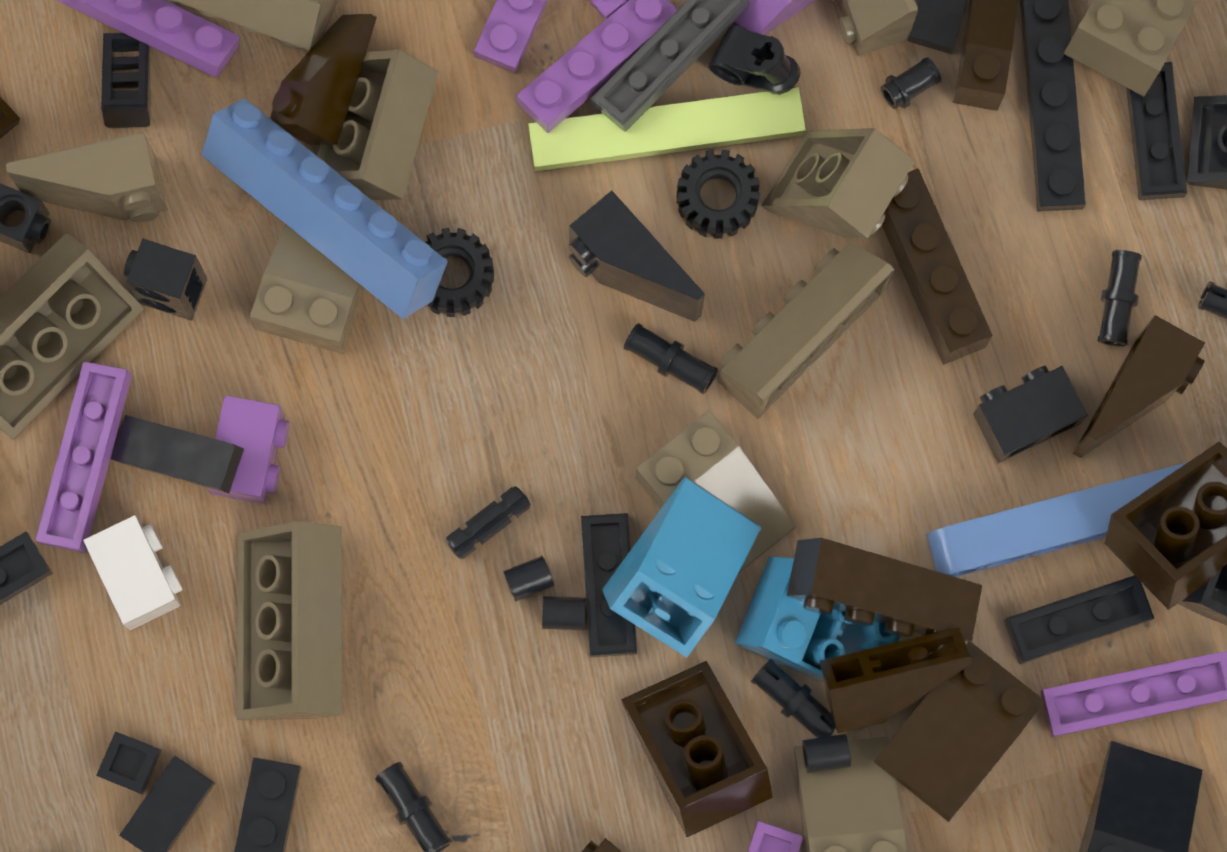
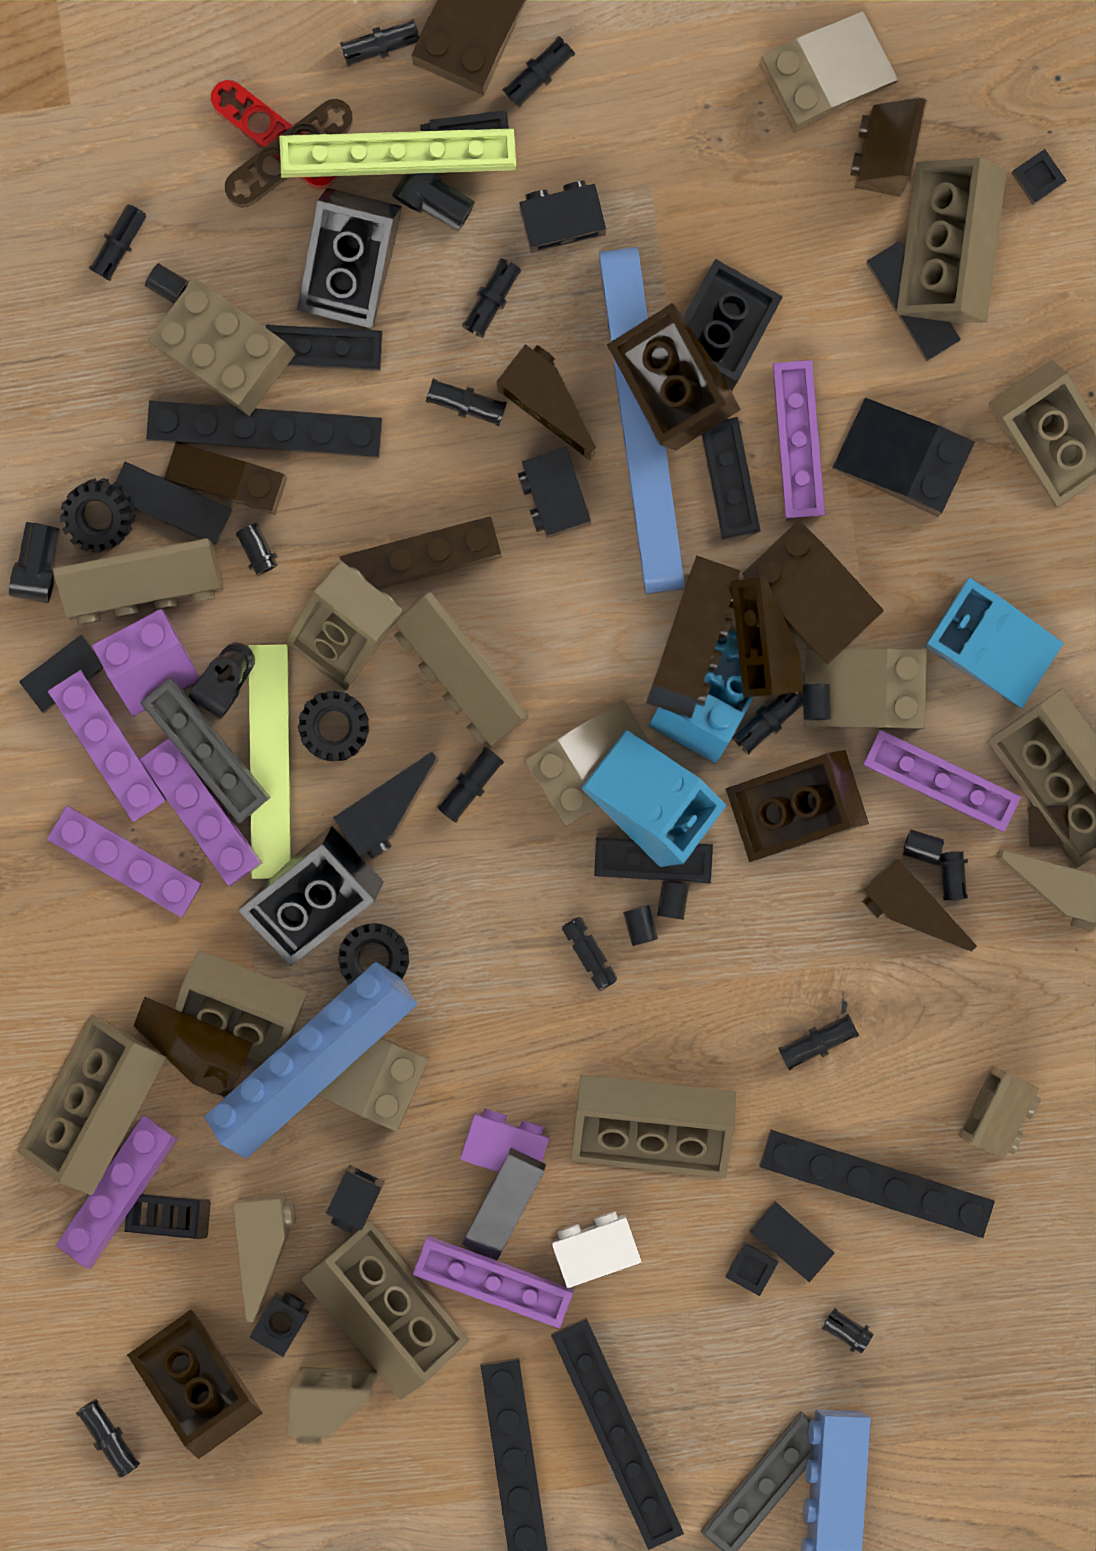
camera: 80 degrees left, 10 degrees up
(515, 190) = (312, 896): none -> black slope

